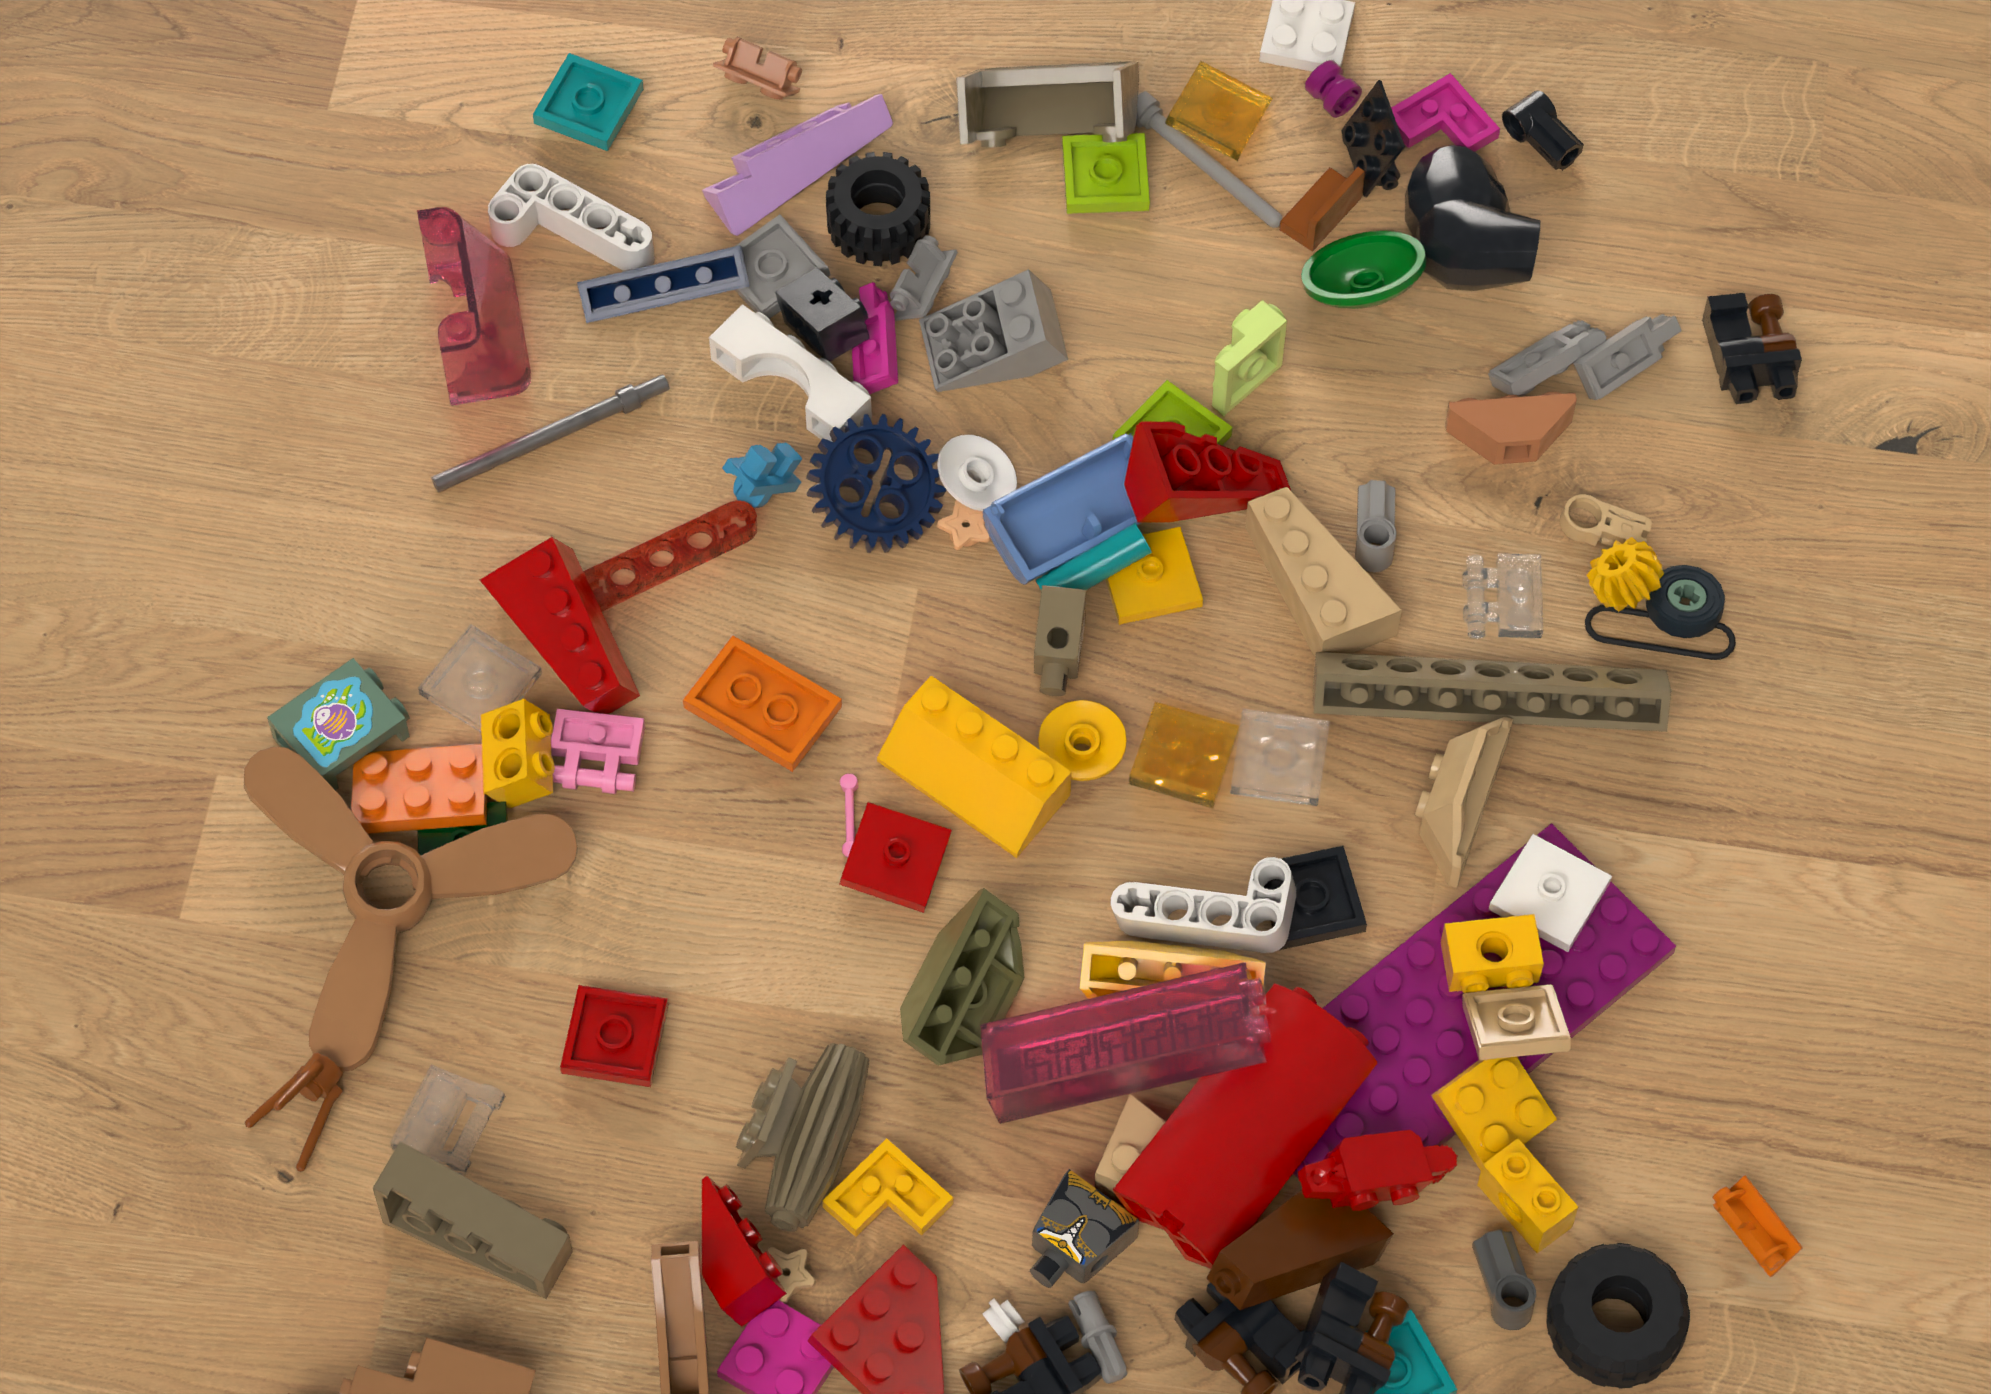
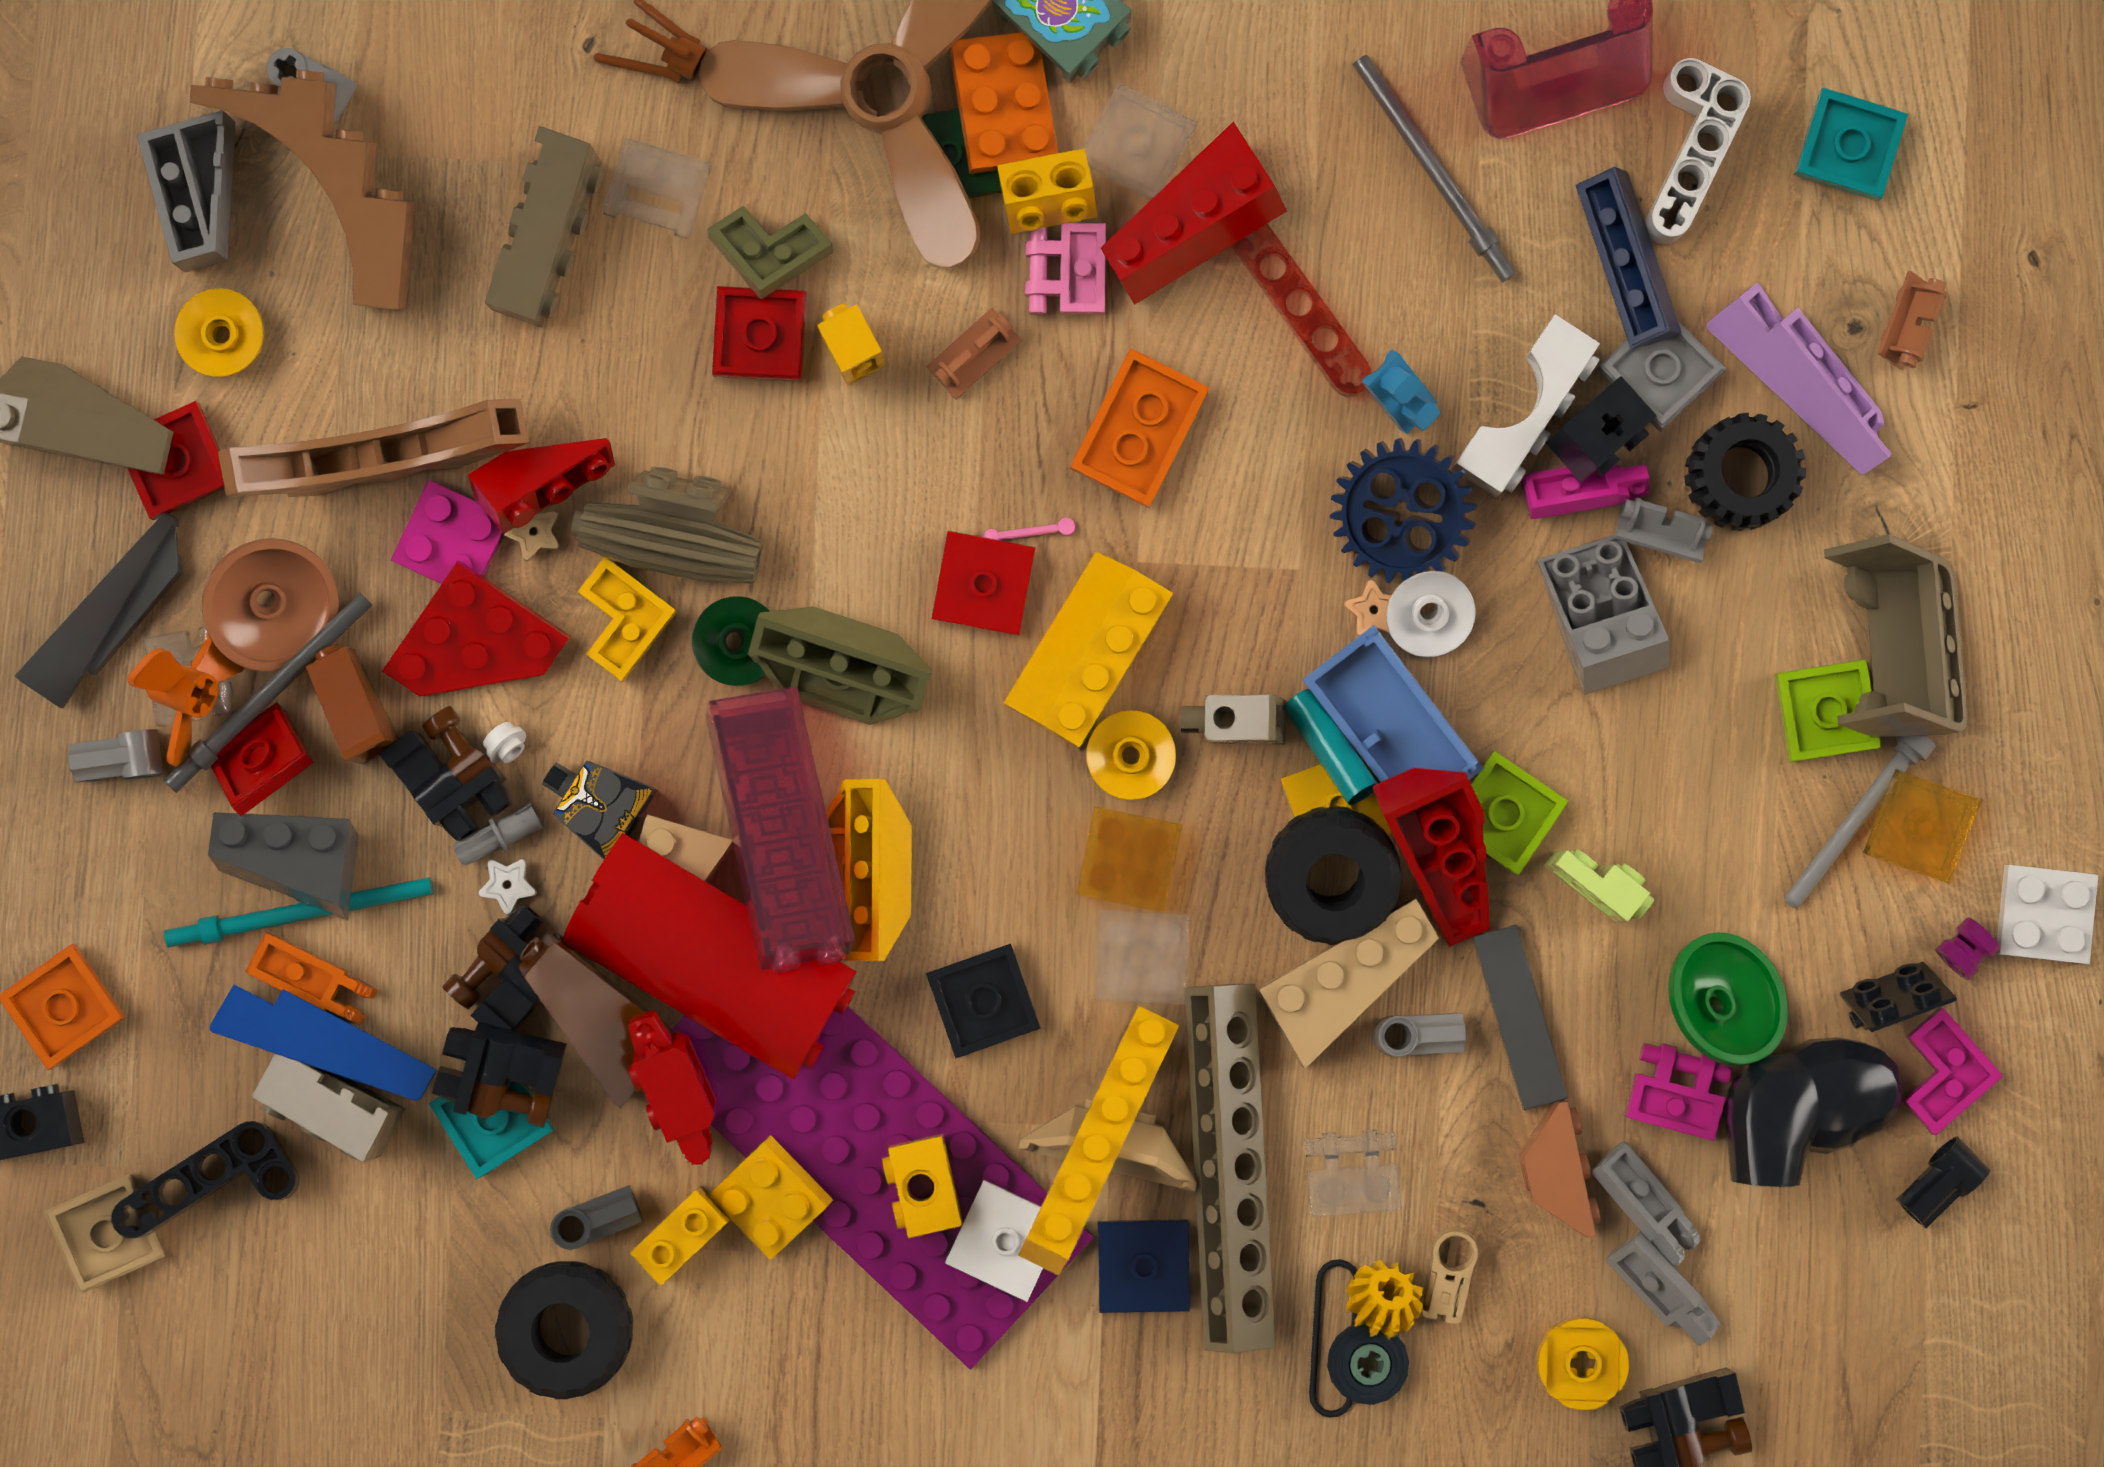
camera: 90 degrees right, 25 degrees up
(540, 1019) = (764, 259): none -> olive plate
(640, 939) = (851, 342): none -> yellow brick
(664, 842) = (974, 353): none -> nougat hinge
(911, 1074) = (710, 635): none -> dark green dish
(1147, 1347) = (519, 888): none -> white plate
(1197, 597) = (1340, 916): none -> black tyre
(1205, 906) = (948, 892): white beam -> none
(1323, 207) = (1814, 948): dark orange panel -> none
(1365, 446) = (1519, 1017): none -> dark grey tile
(1457, 330) = (1674, 1105): none -> dark pink plate
(1516, 1022) = (848, 1214): tan plate -> none
(1531, 800) = (1098, 1141): none -> yellow arch
(1581, 786) = (1143, 1266): none -> dark blue plate
(1690, 448) = (1600, 1382): none -> yellow plate

